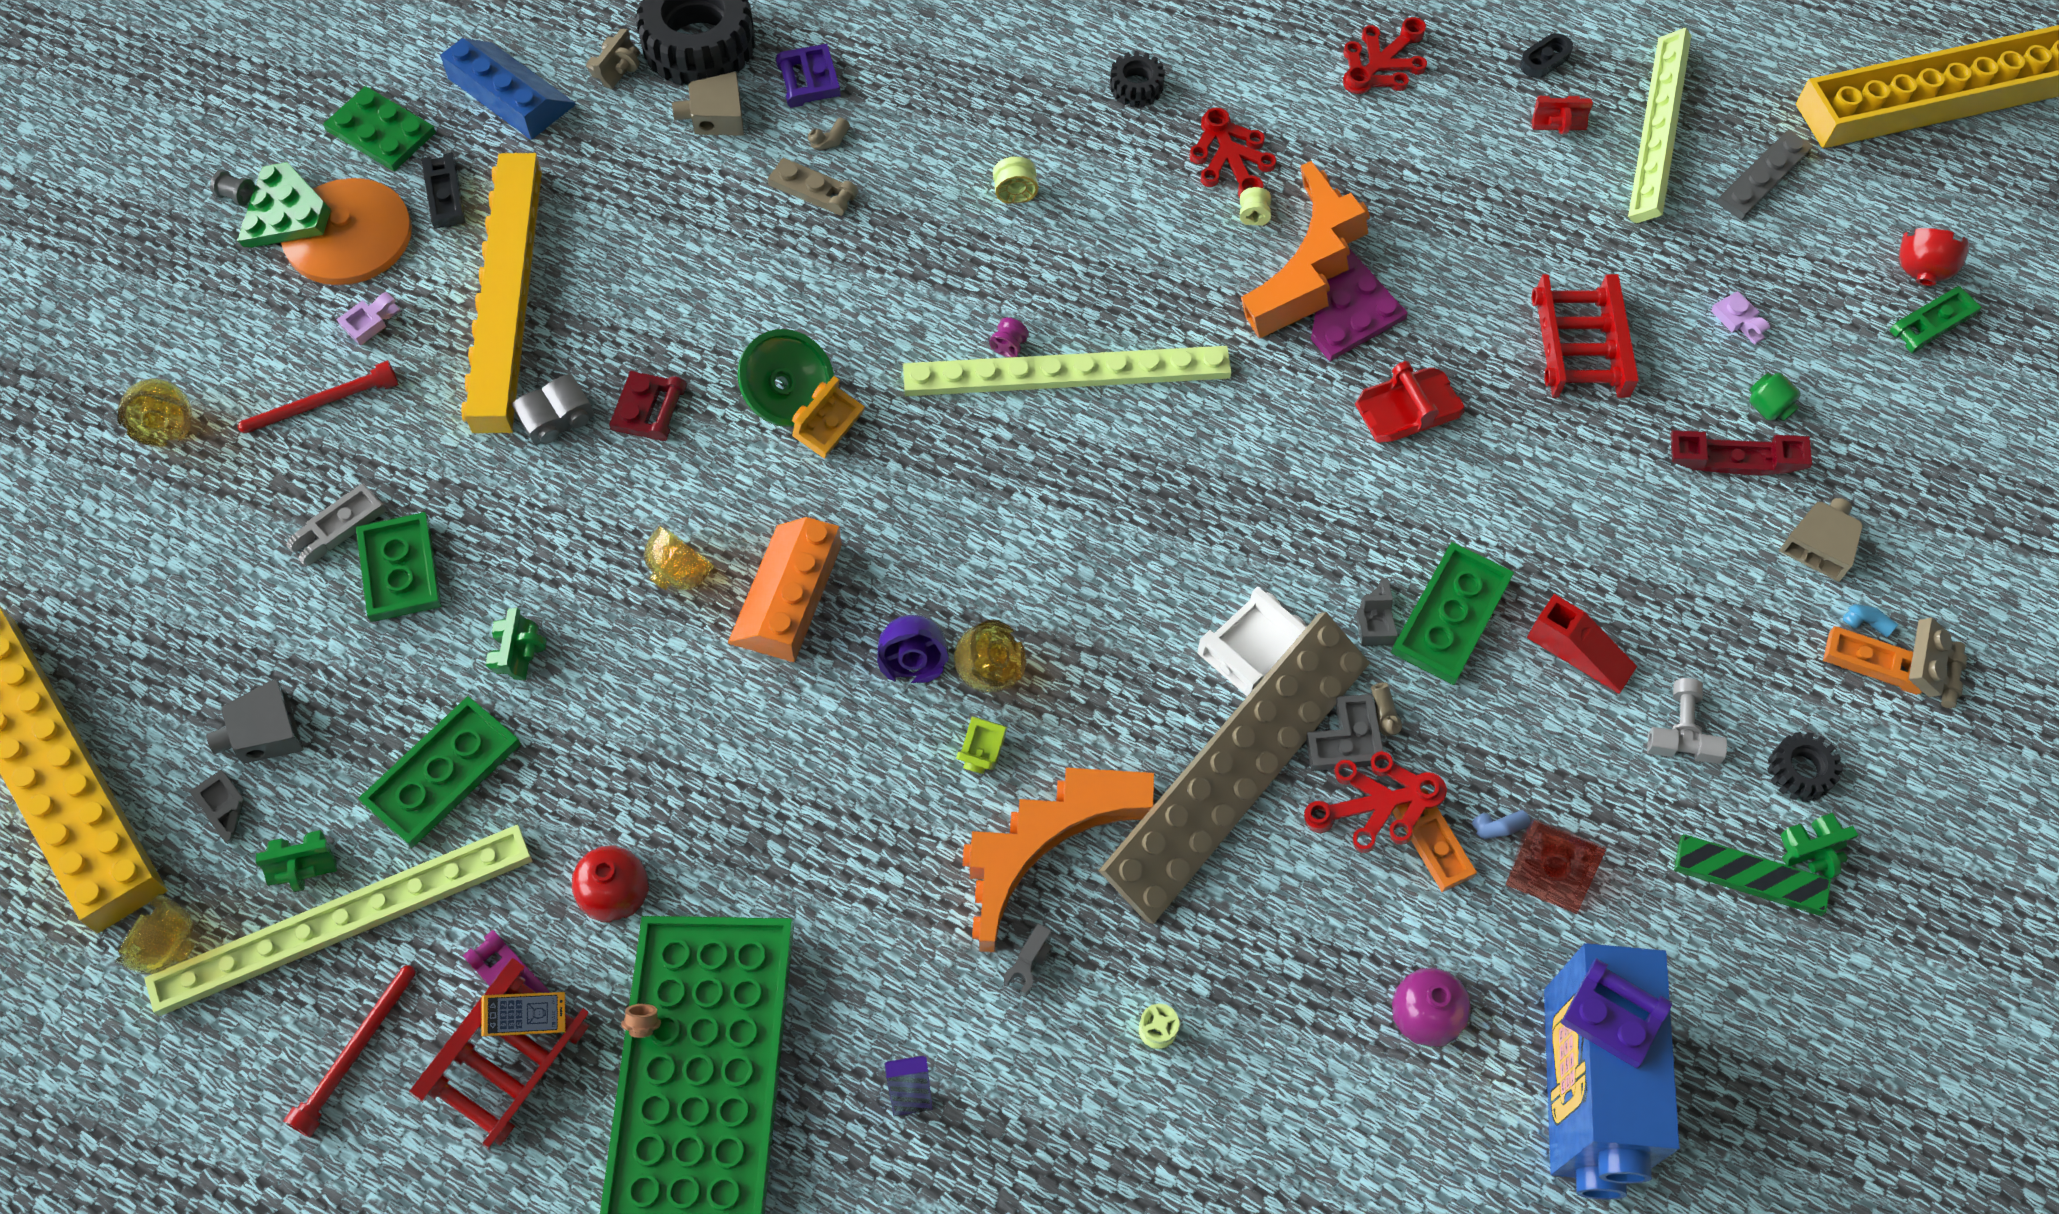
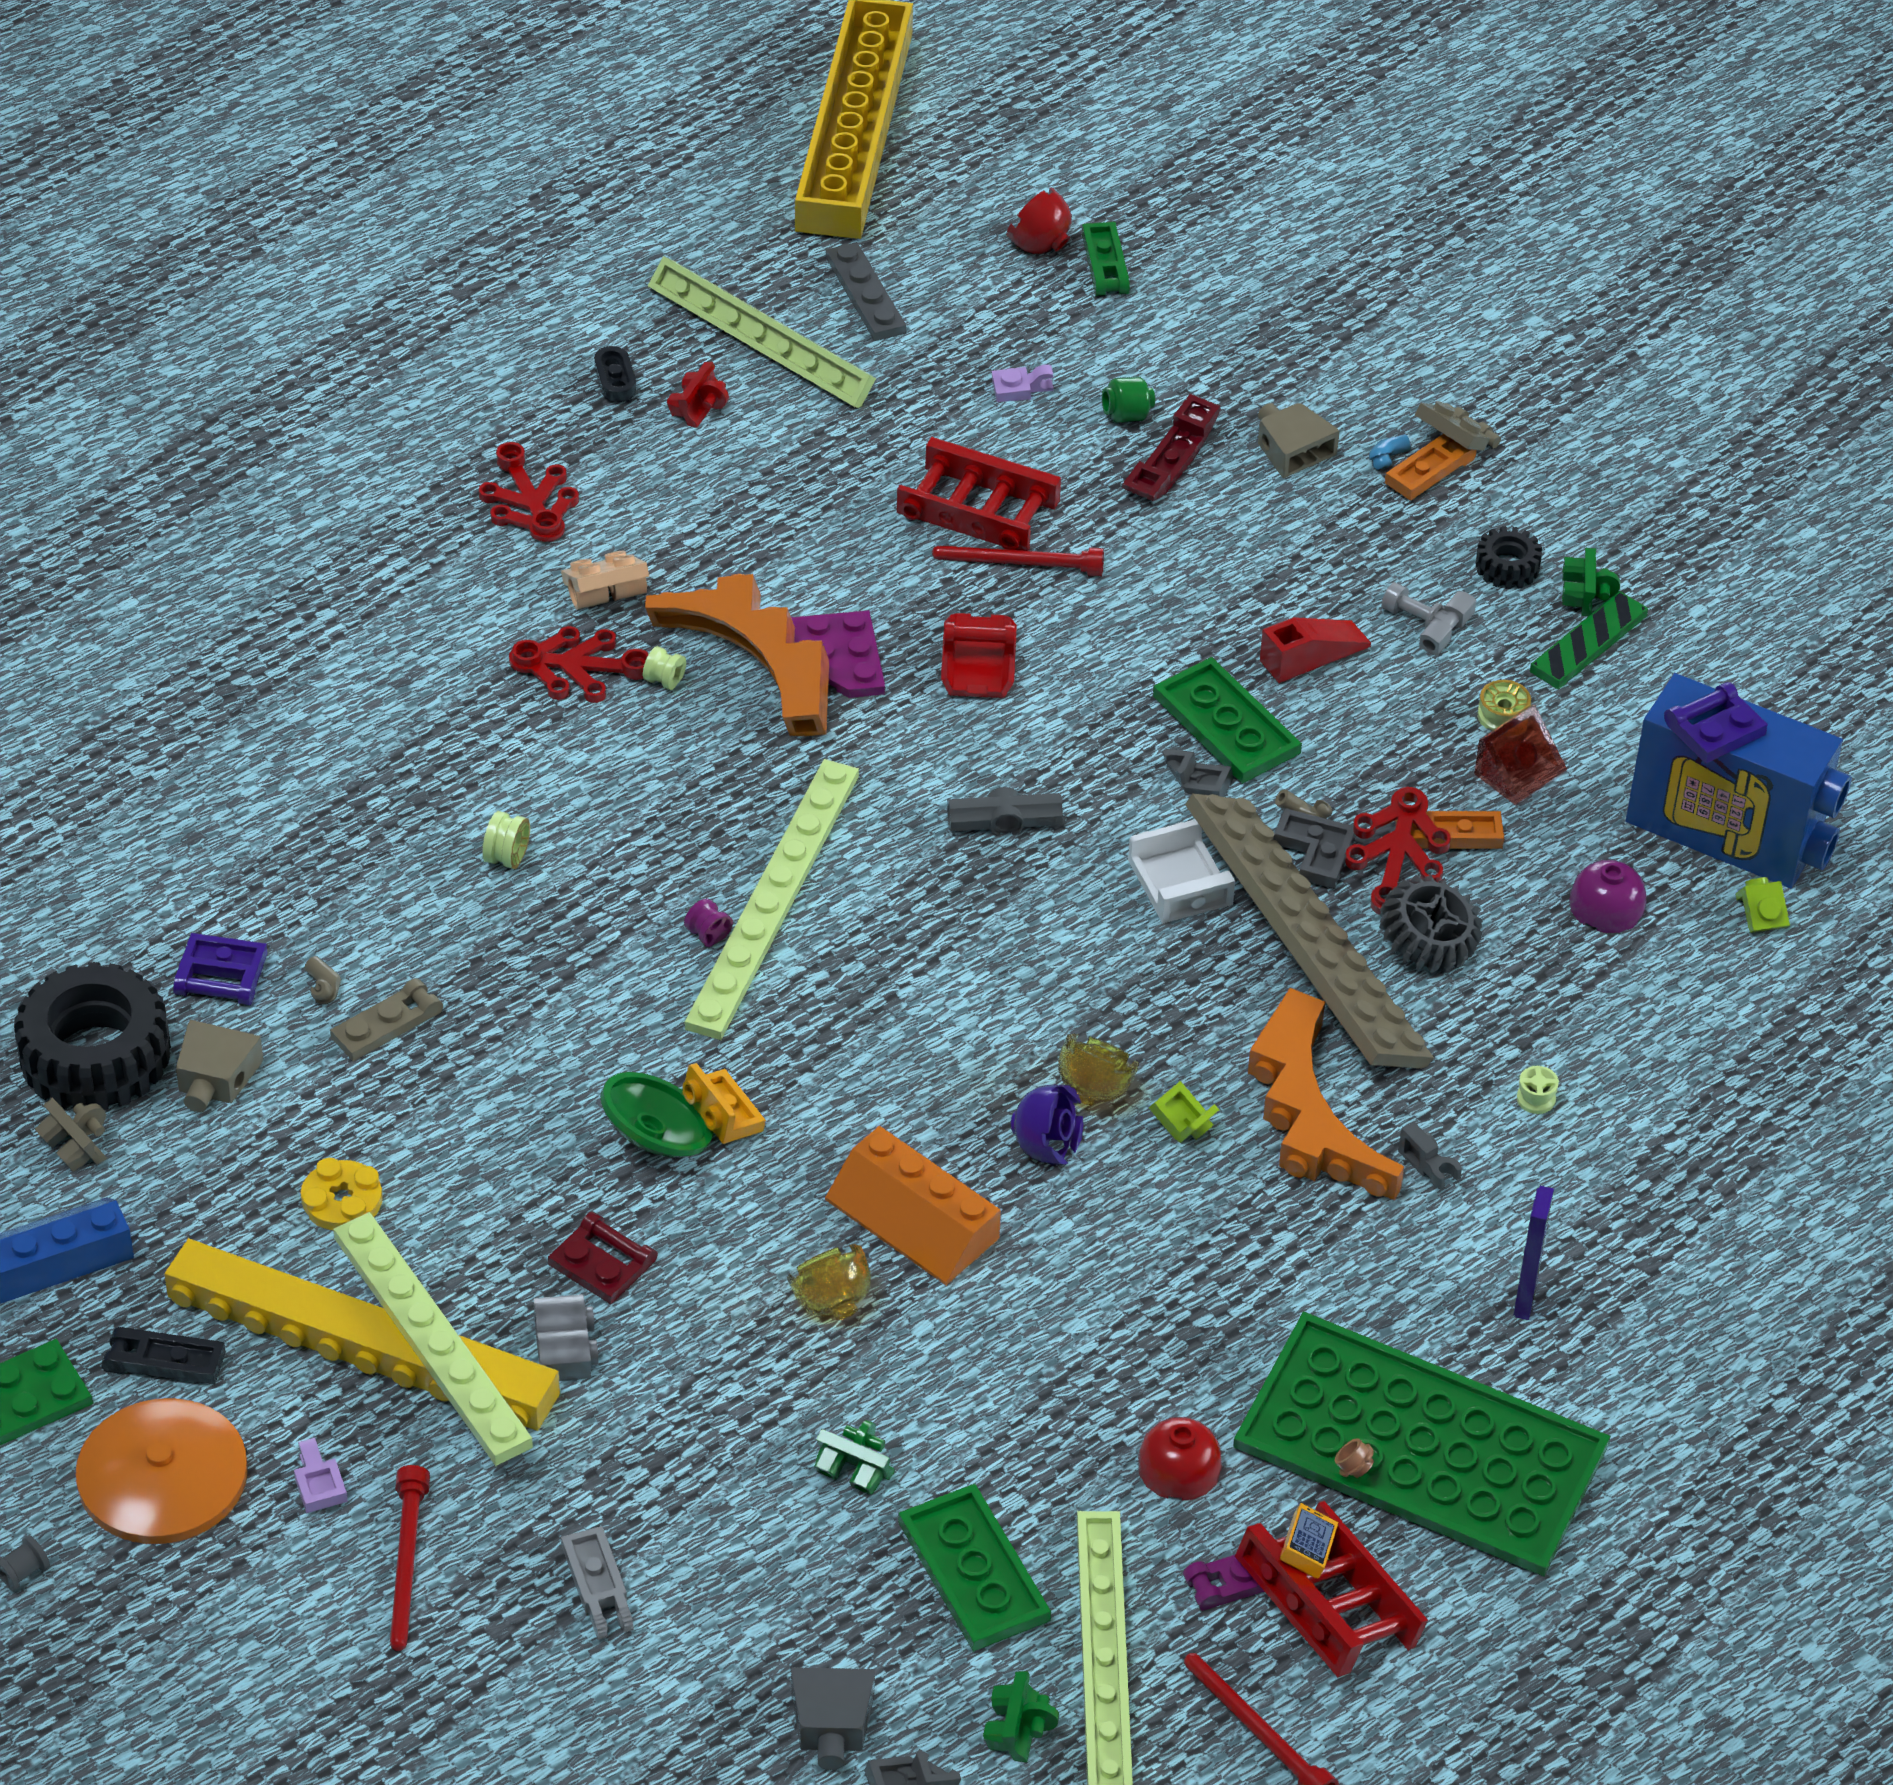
camera: 65 degrees left, 15 degrees down
(155, 412) = (342, 1702): clear yellow cylinder -> none
(282, 209) = (96, 1513): plate -> none
(398, 567) = (690, 1537): green plate -> none
(496, 327) = (433, 1339): none -> yellowish green plate
(633, 212) = (336, 1175): none -> yellow plate
(1138, 66) = (427, 709): black tyre -> none
(1244, 489) = (1004, 811): none -> dark grey piece
(1302, 878) = (1430, 923): none -> dark grey gear
(1325, 135) = (619, 573): none -> light nougat plate
(1502, 827) = (1463, 774): medium blue arm -> none
(1504, 1154) = (1764, 905): none -> lime bracket
(1567, 440) = (1089, 561): none -> red piece
(1623, 819) = (1501, 701): none -> yellowish green wheel

